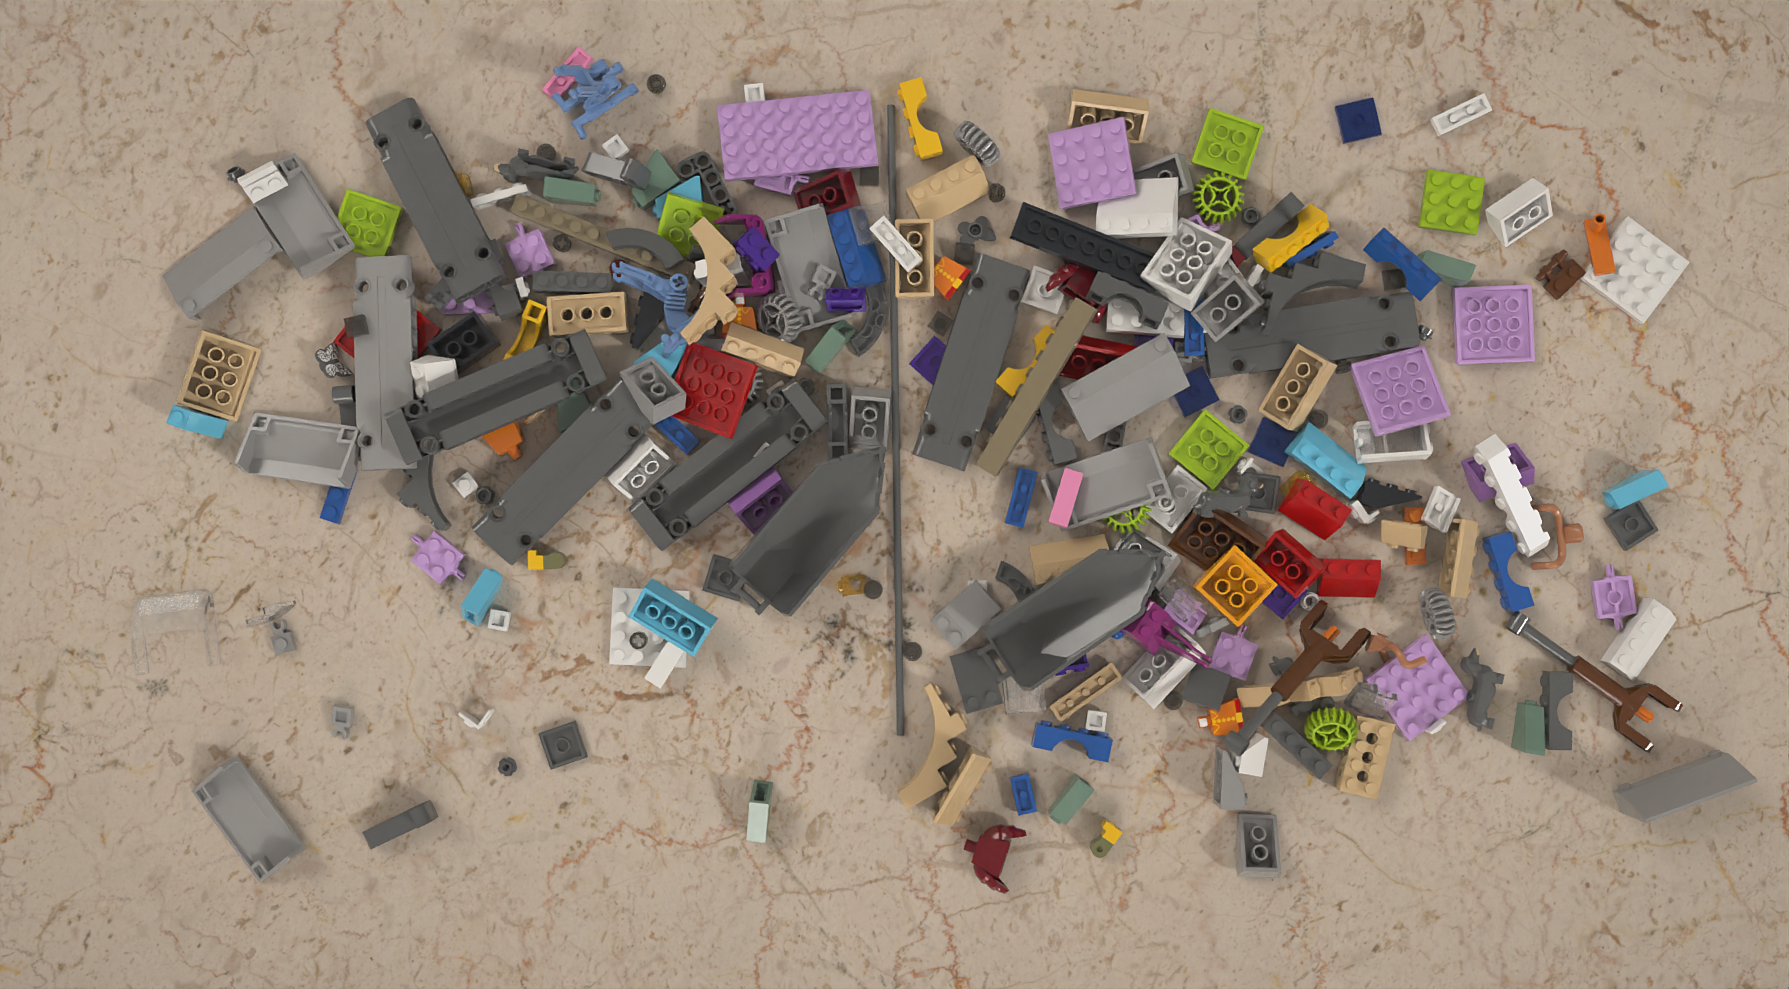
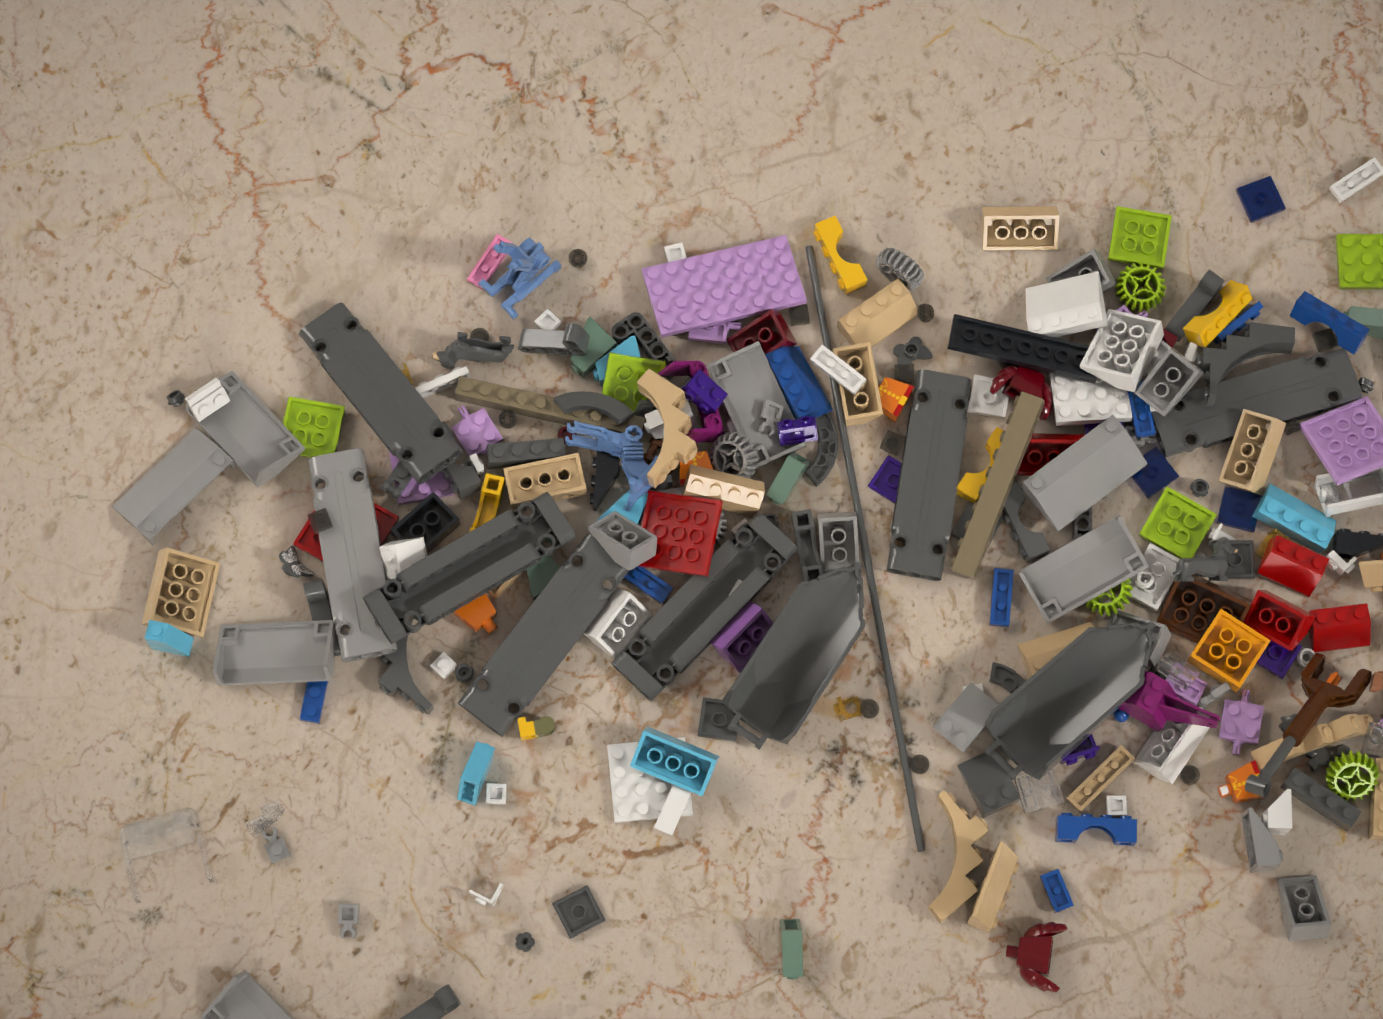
camera: 10 degrees left, 15 degrees down
(438, 557) = (425, 741): lavender plate -> none
(571, 192) = (511, 368): sand green slope -> none
(635, 644) = (638, 795): clear smoke bush -> none
(864, 217) = (802, 351): clear slope -> none
(1065, 498) = (1046, 588): bright pink tile -> none
(1070, 799) = (1105, 886): sand green slope -> none
(1092, 163) = (1013, 272): lavender plate -> none
(1104, 842) = (1149, 924): leg -> none
(1149, 308) = (1093, 394): dark grey arch -> none
(1206, 687) = (1220, 754): dark grey tile -> none
(1250, 211) = (1175, 296): dark grey plate -> none
(1318, 418) = (1279, 480): clear smoke plate -> none

